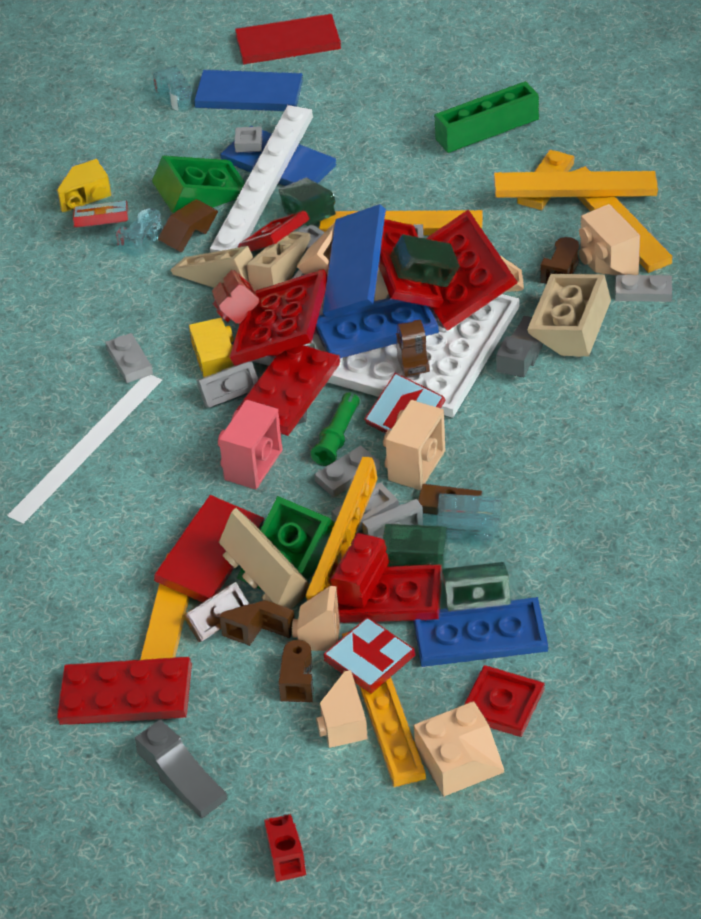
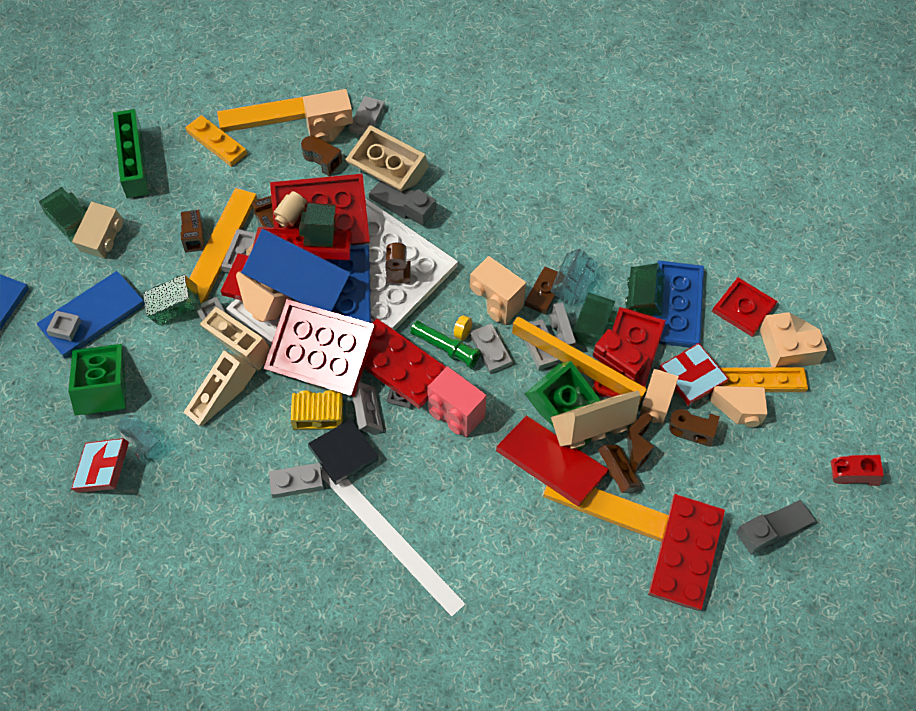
camera: 80 degrees left, 15 degrees up
(83, 185) = (48, 472): yellow slope -> none
(168, 379) = (343, 451): none -> black tile
(184, 222) = (148, 399): reddish brown slope -> none
(234, 297) = (275, 376): brick -> none
(263, 178) = (122, 330): white plate -> none
(275, 231) = (200, 333): red tile -> none
(363, 435) = (462, 327): none -> yellow tile
(376, 126) = (98, 230): none -> tan brick
(390, 101) = (63, 211): none -> clear green brick
(396, 398) = (446, 292): medium azure tile -> none
(410, 194) = (192, 230): none -> reddish brown leg
(442, 232) = (290, 209): none -> tan brick
(575, 184) = (241, 122): light orange tile -> none

